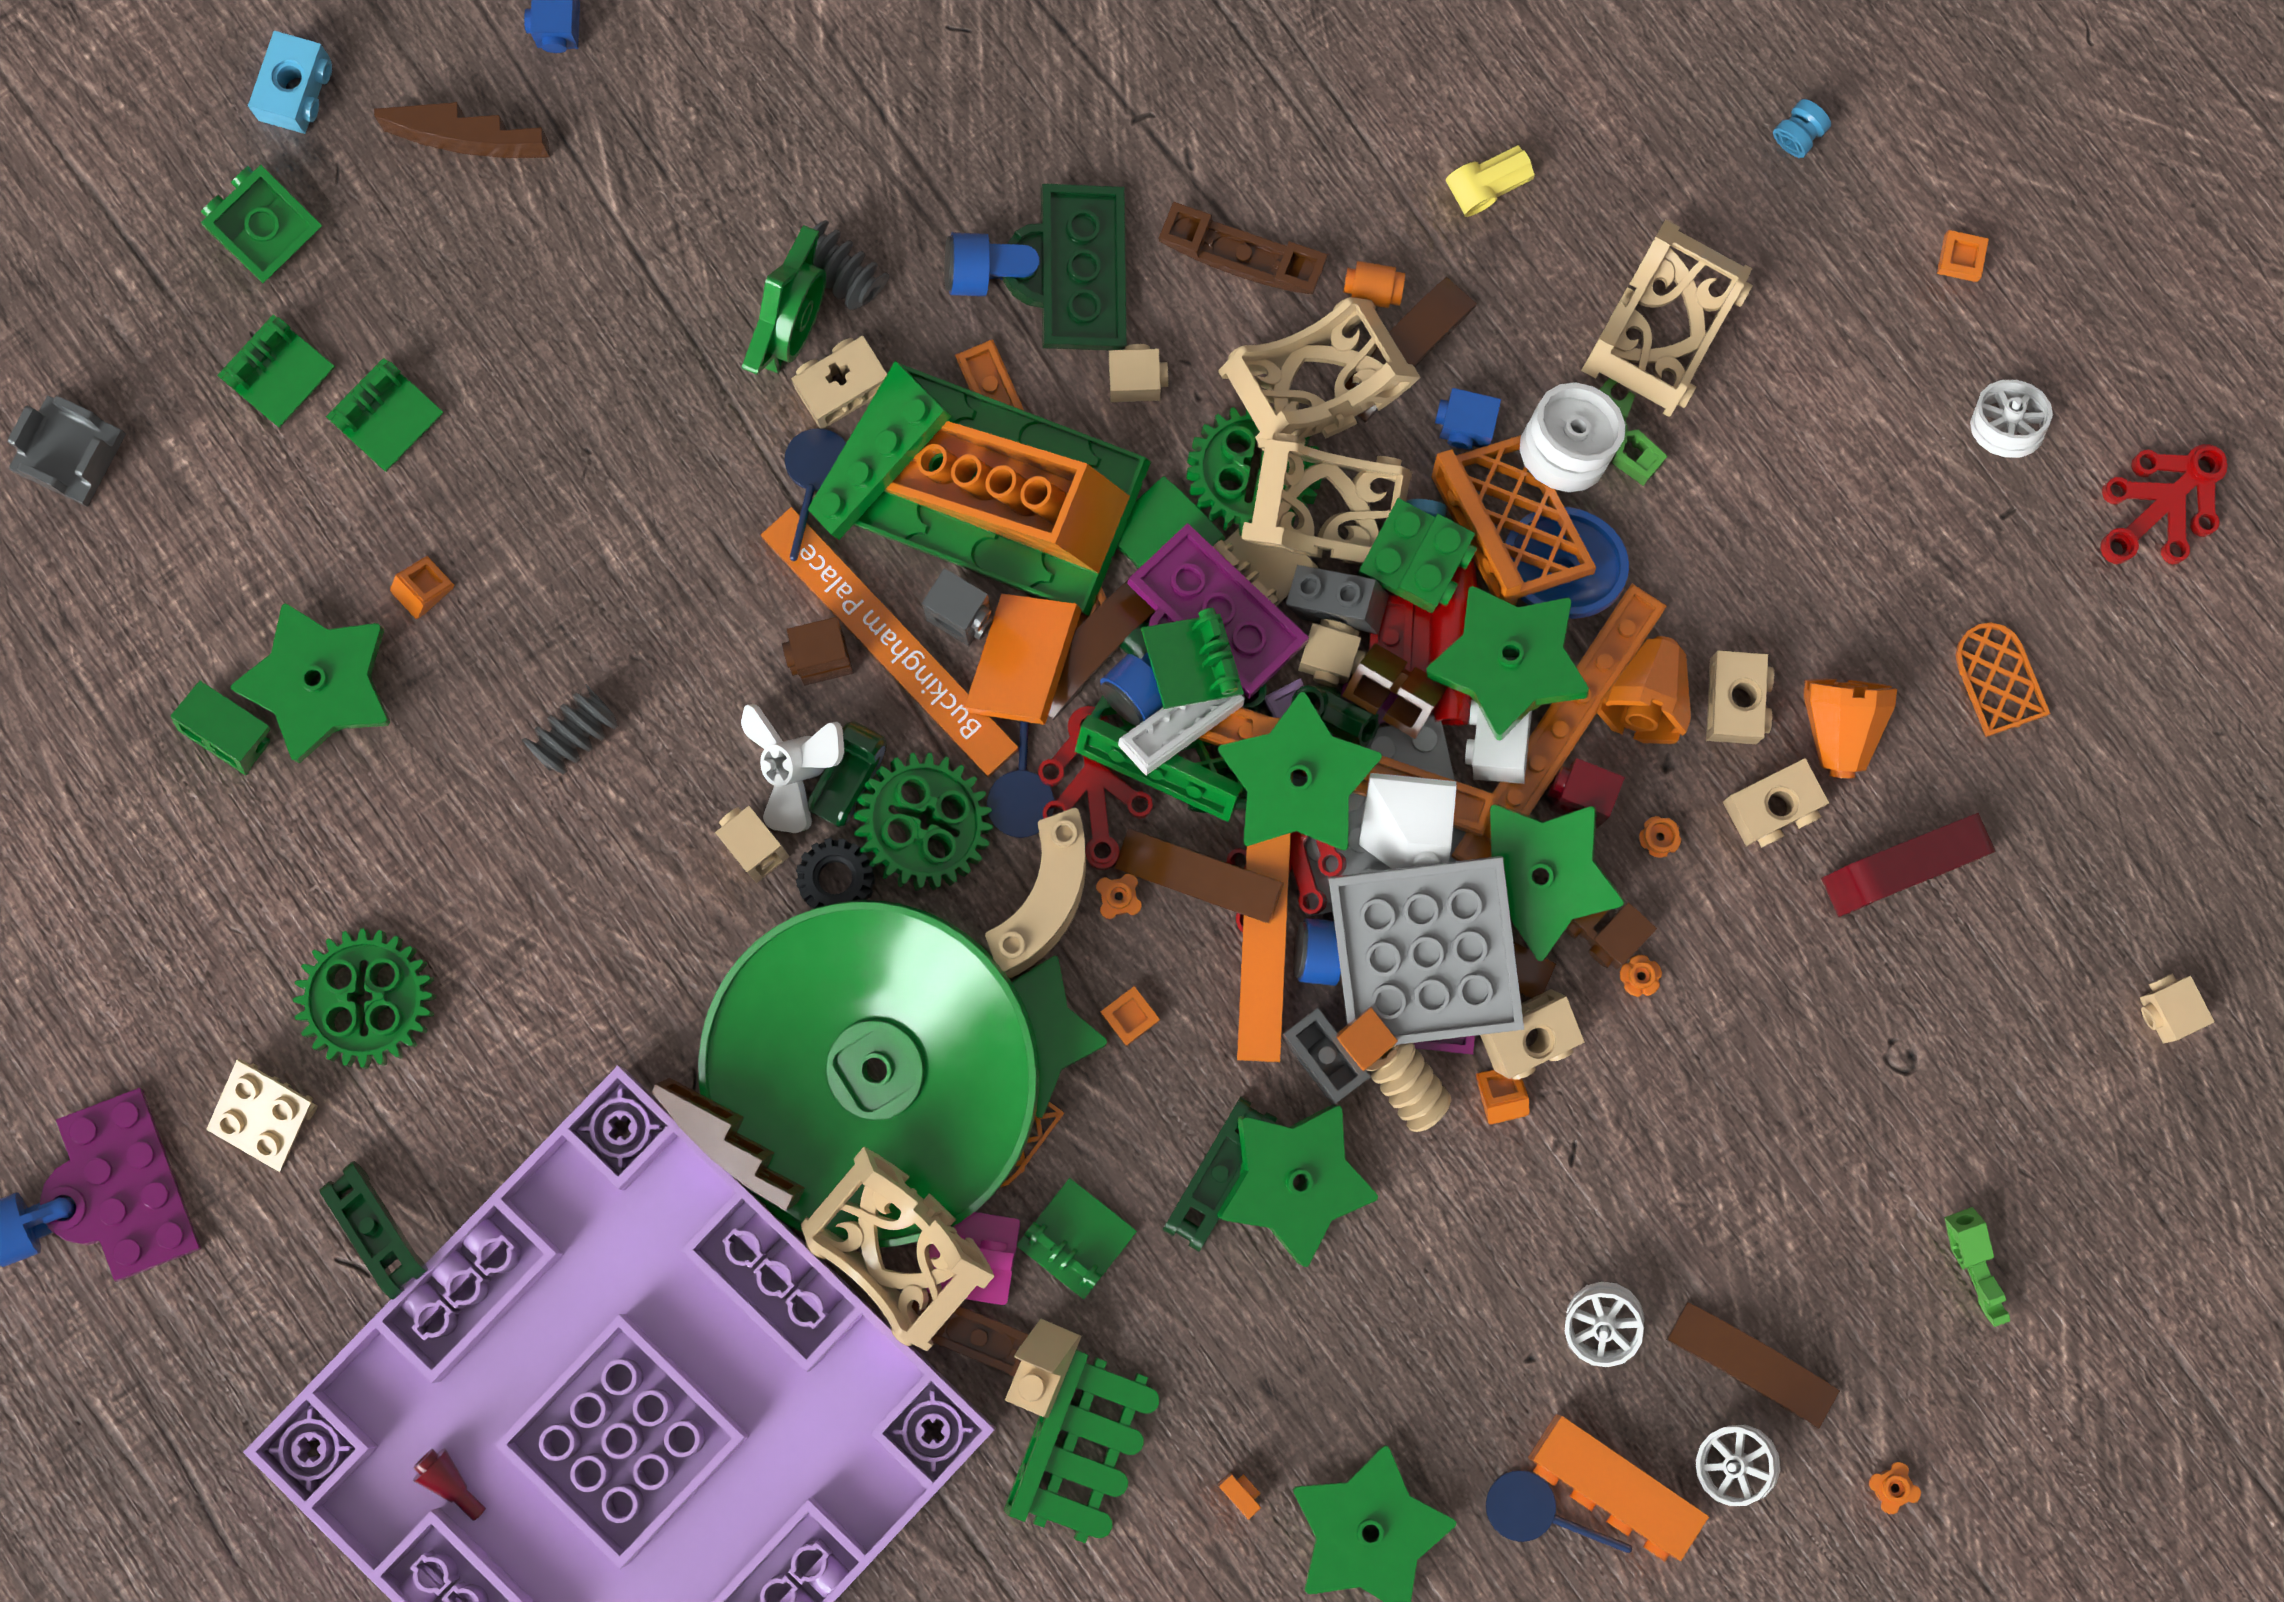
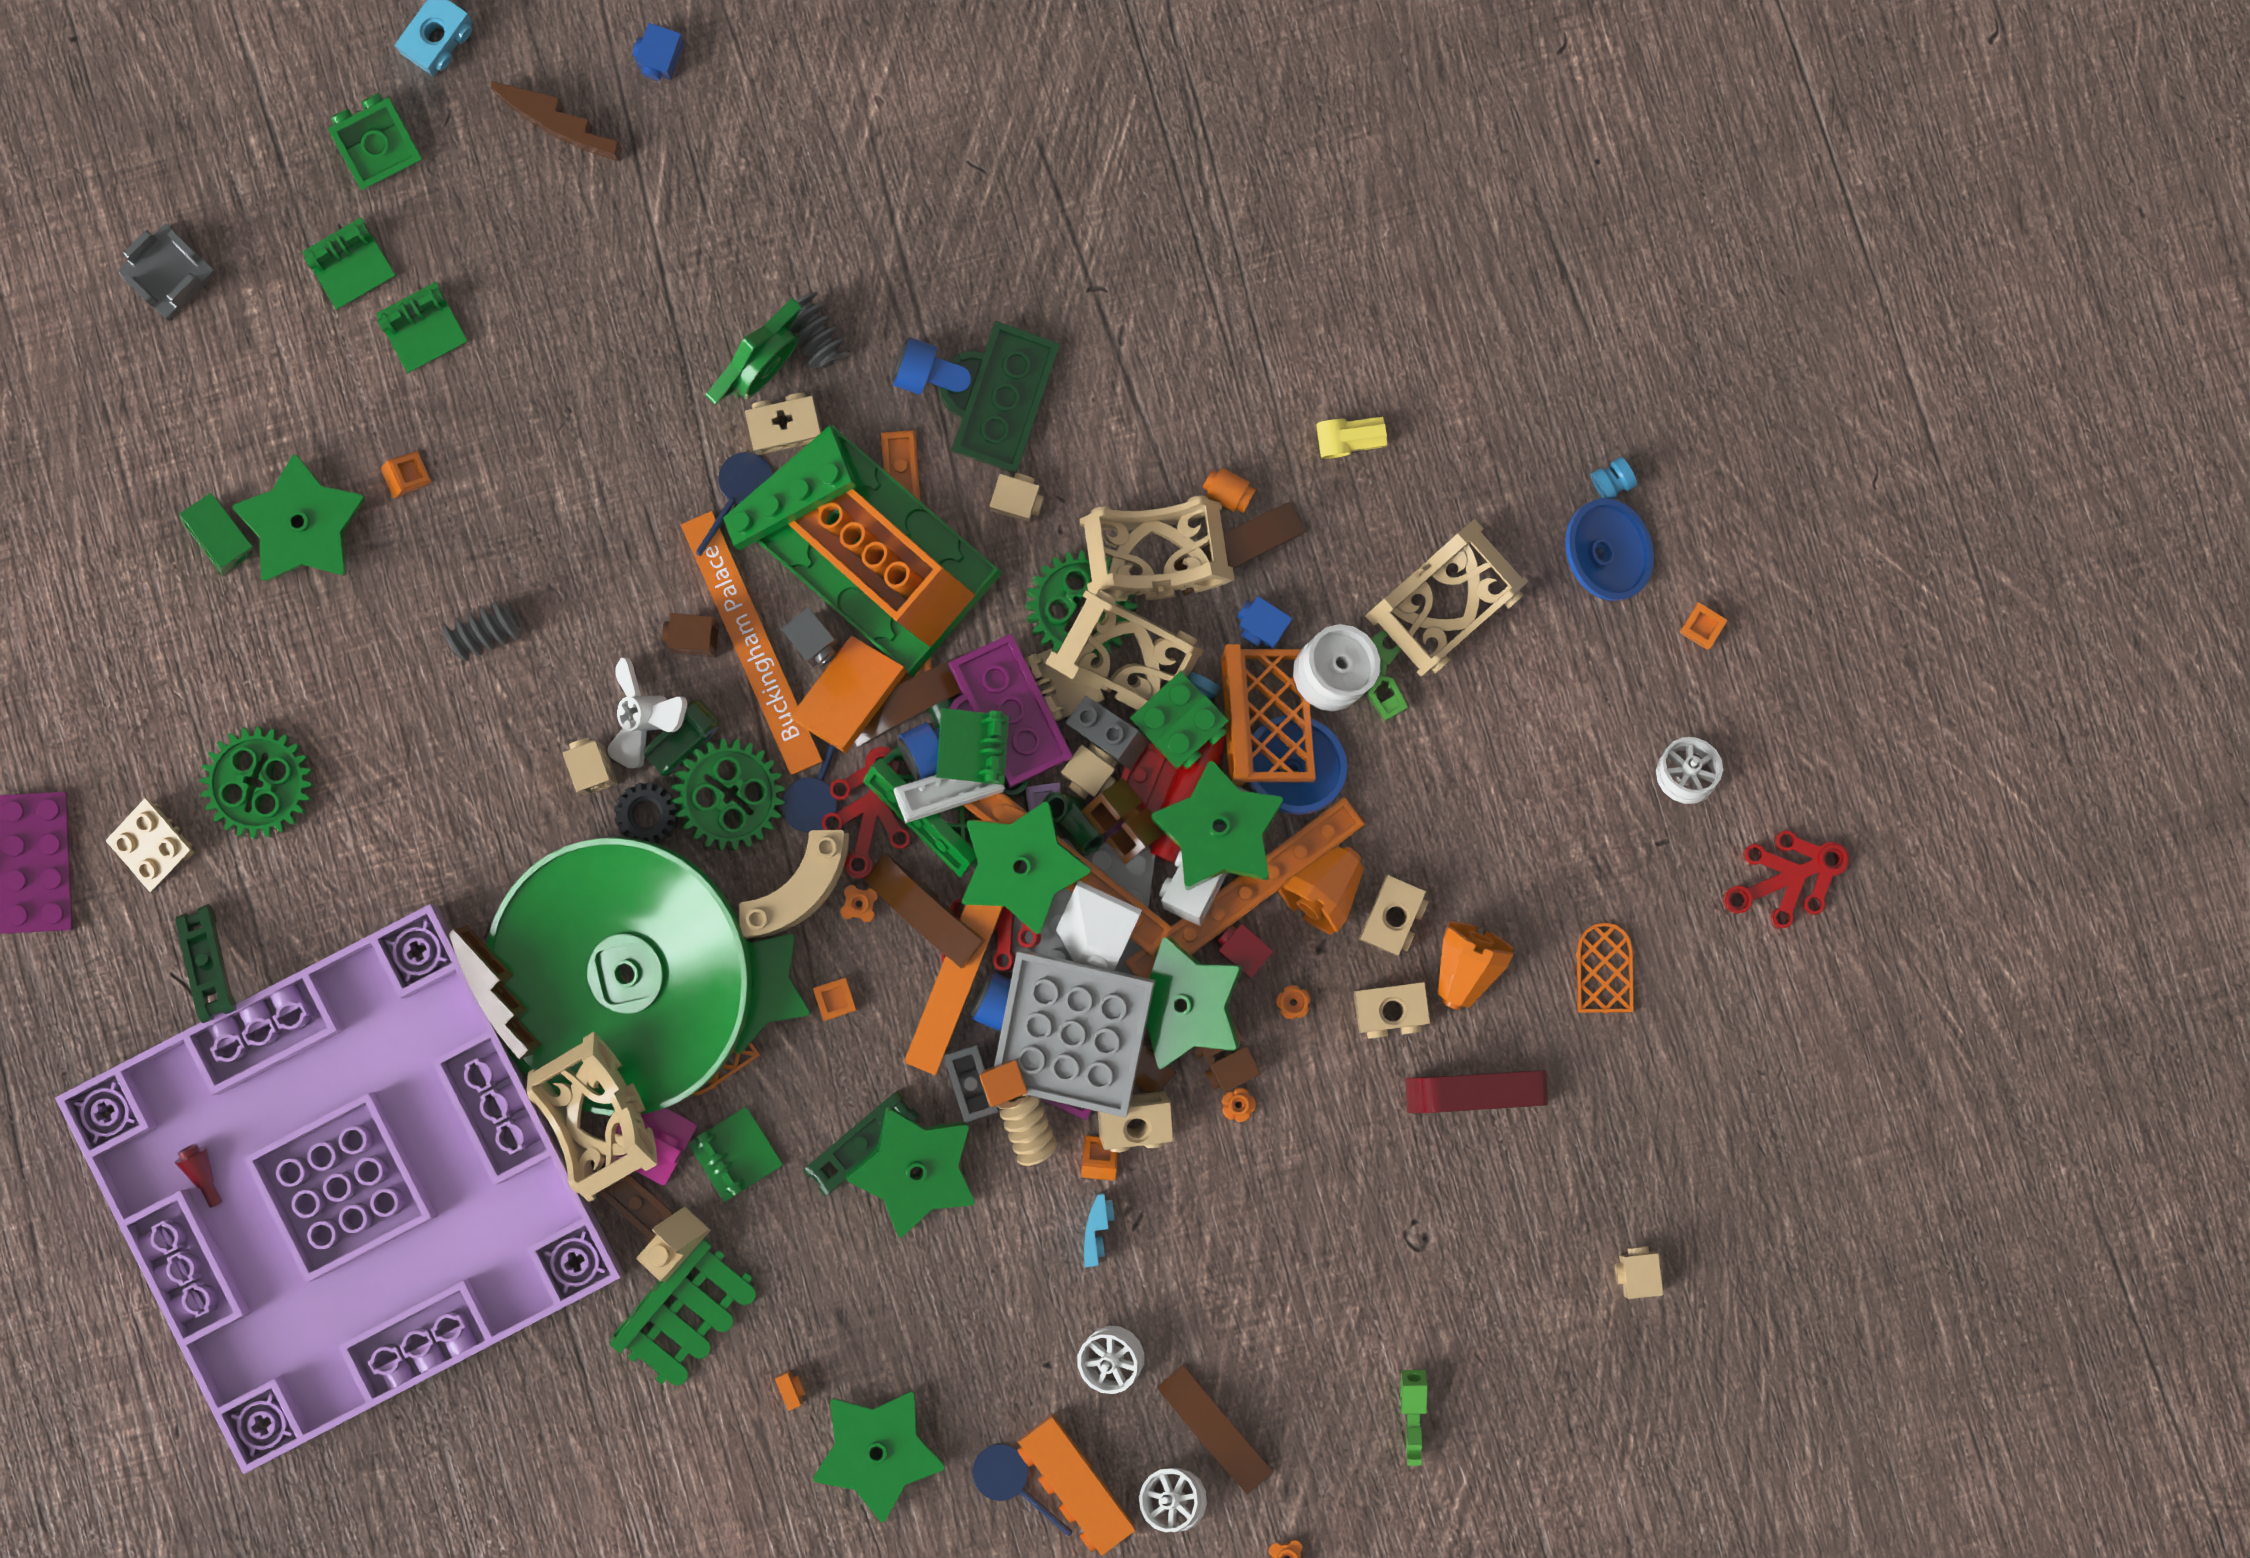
camera: 20 degrees right, 5 degrees up
(1158, 518) = (993, 619): green slope -> none
(1242, 253) = (1134, 426): reddish brown slope -> none
(1528, 1163) = (1098, 1219): none -> medium azure slope
(1828, 203) = (1621, 547): none -> blue dish

